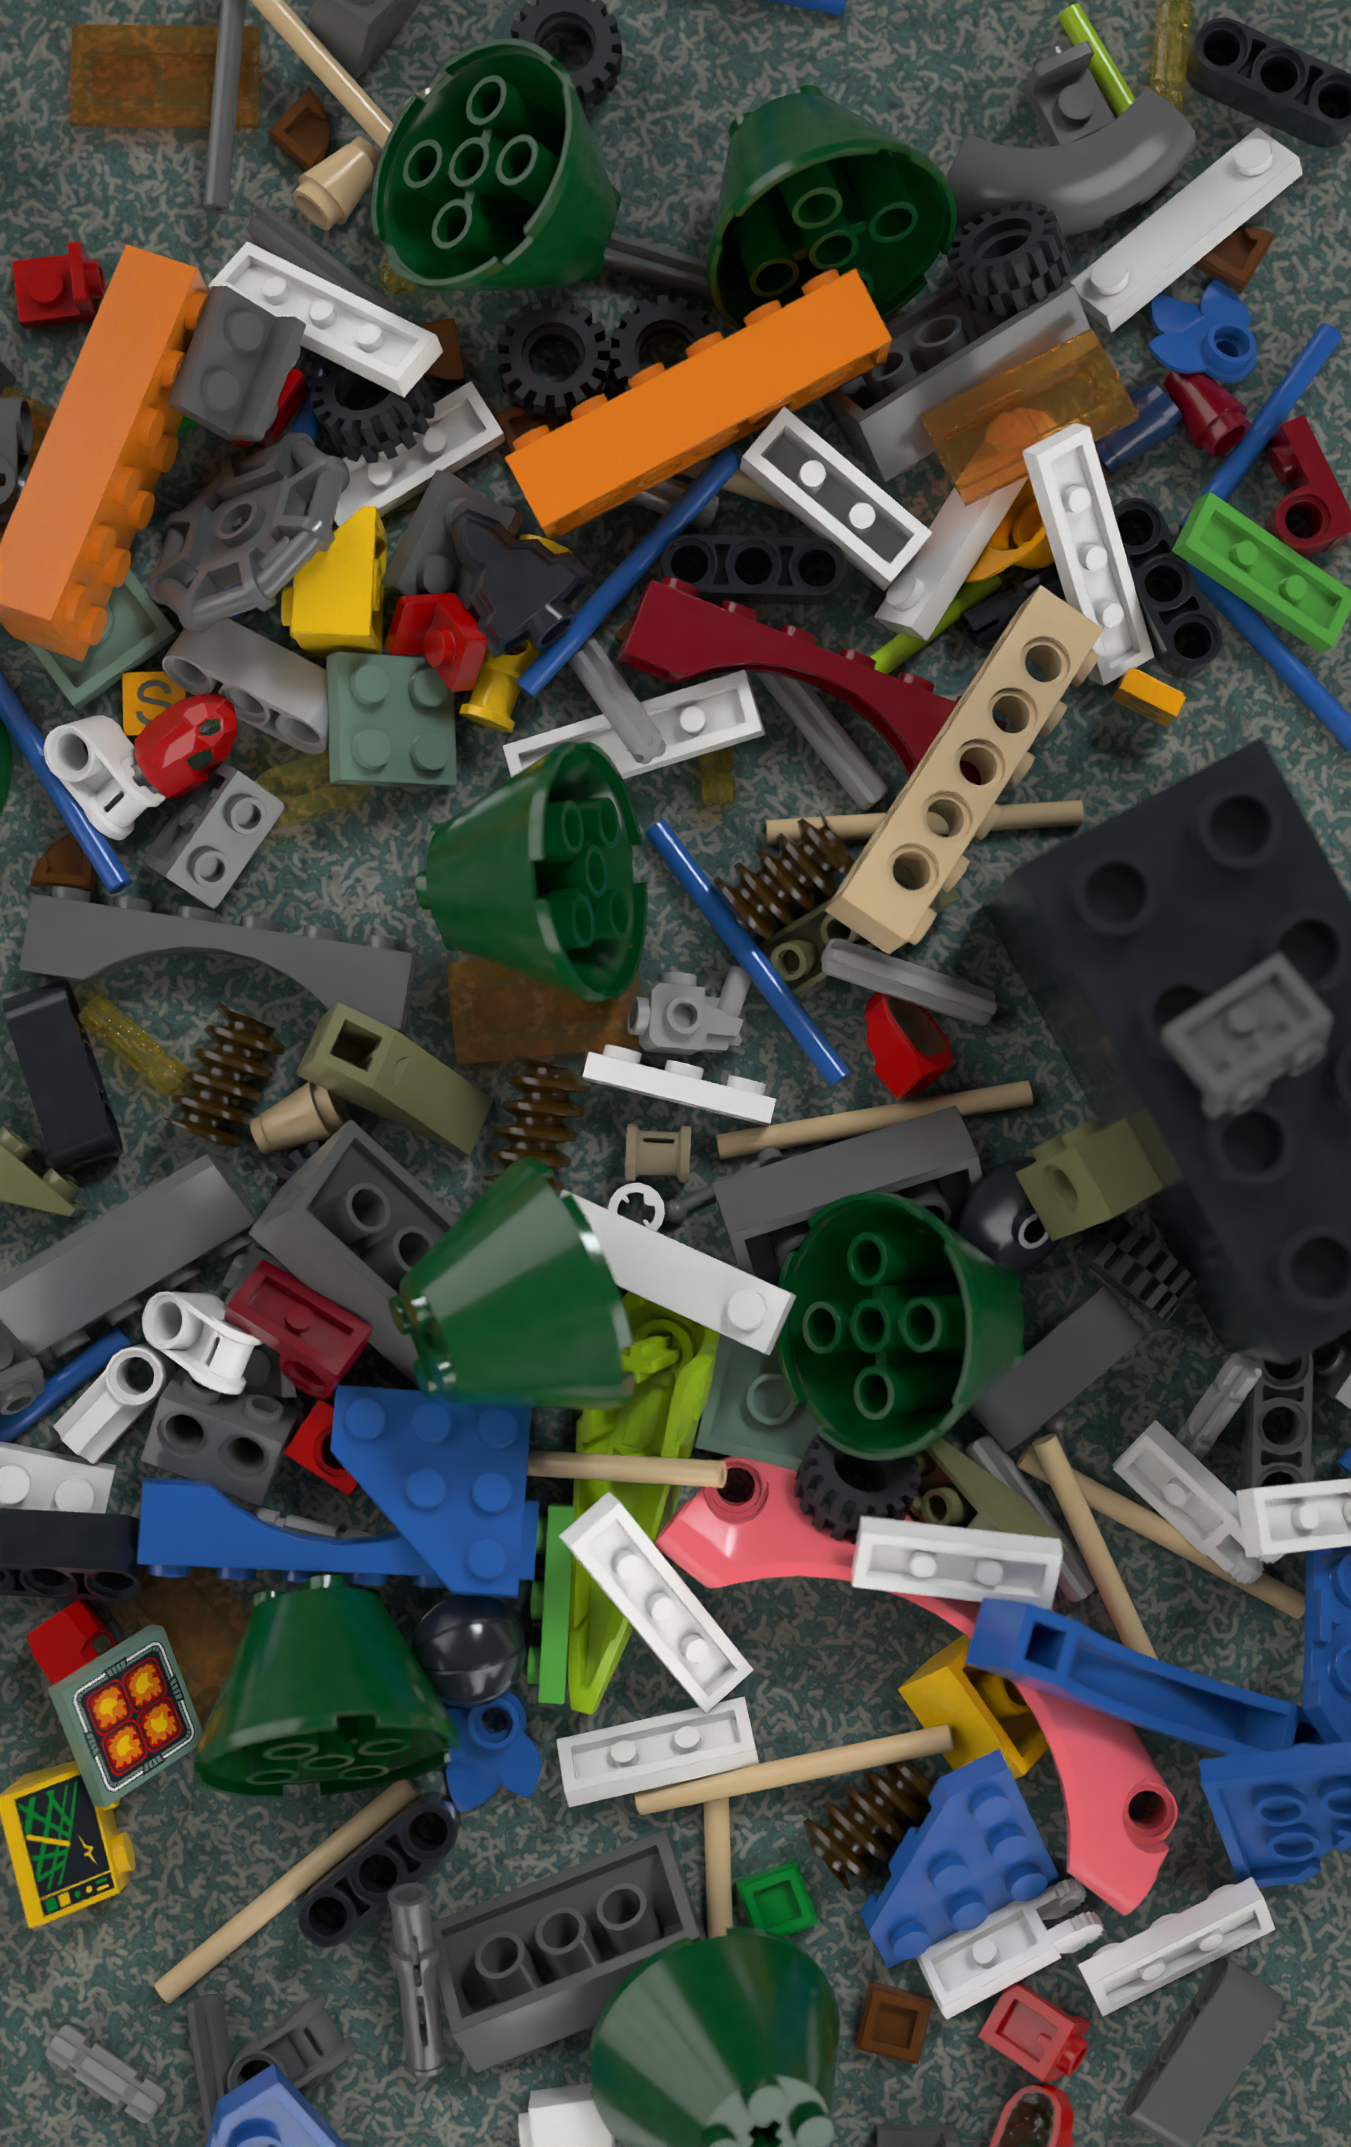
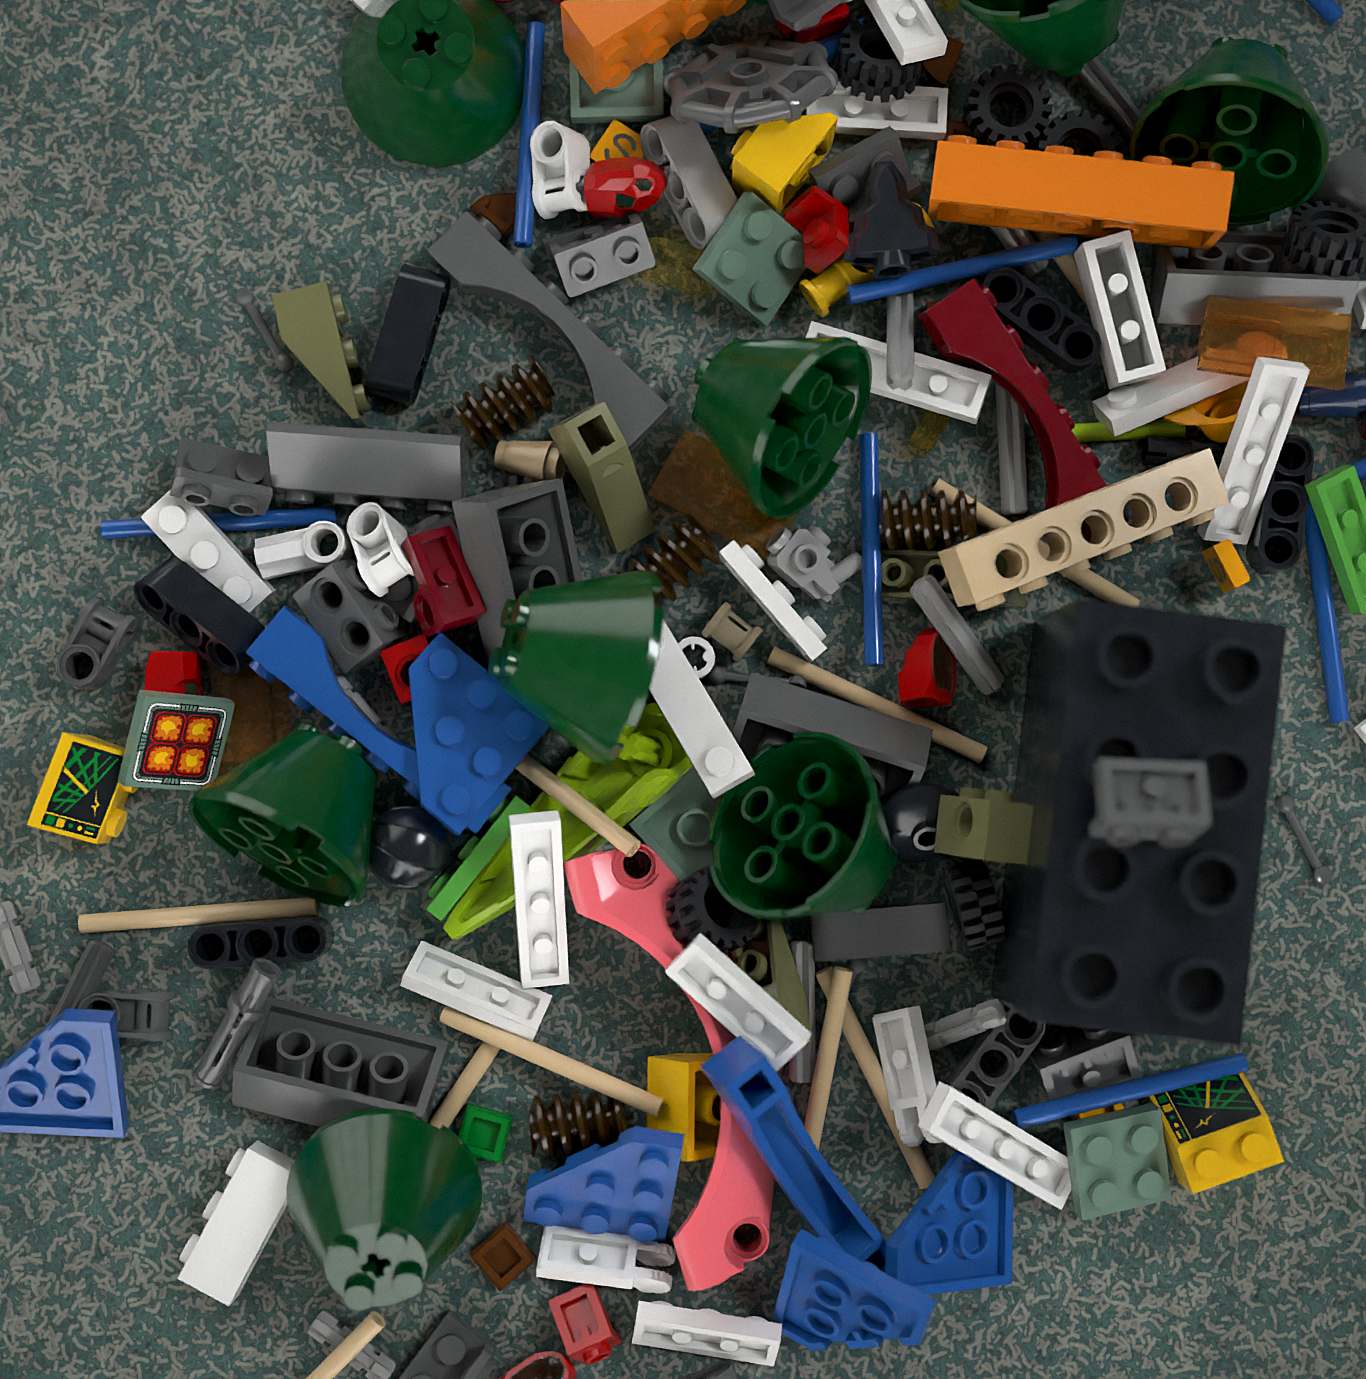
camera: 40 degrees right, 0 degrees up
(133, 1045) = (463, 346): clear yellow axle -> none
(491, 1755) = (374, 923): blue plate -> none

